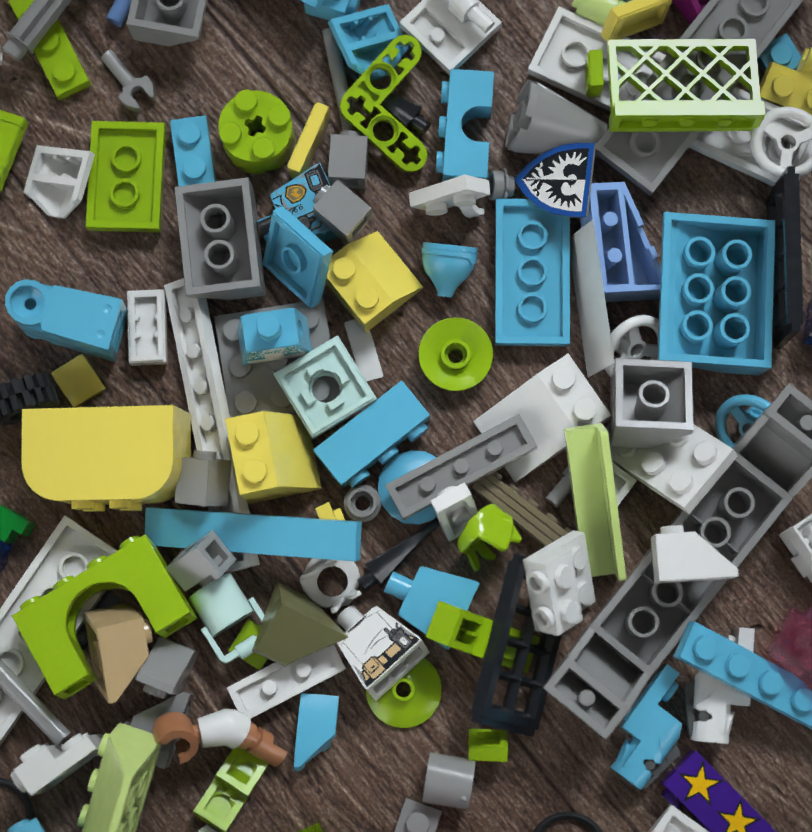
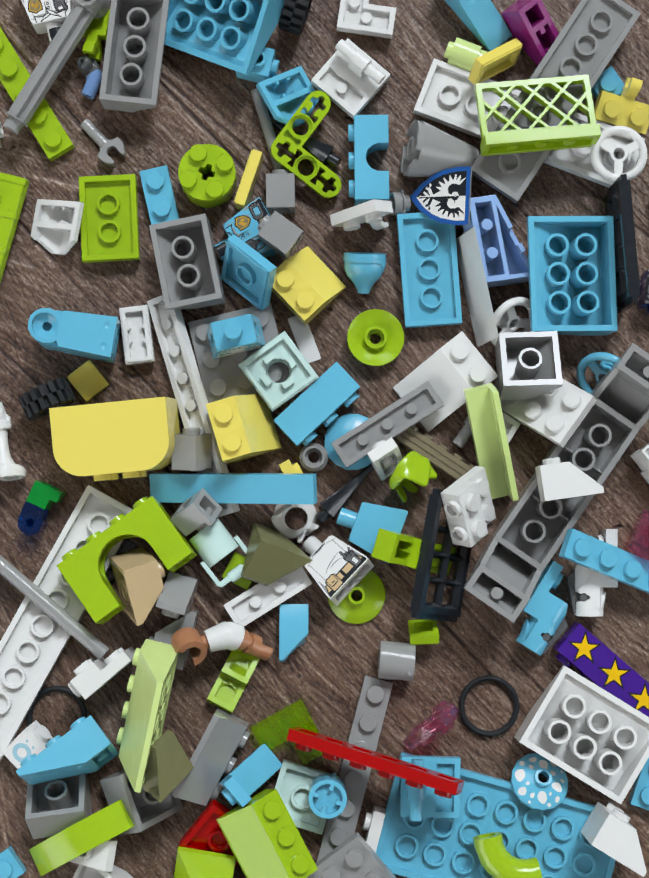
camera: 10 degrees left, 5 degrees up
(594, 73) = (465, 110): lime tile -> none

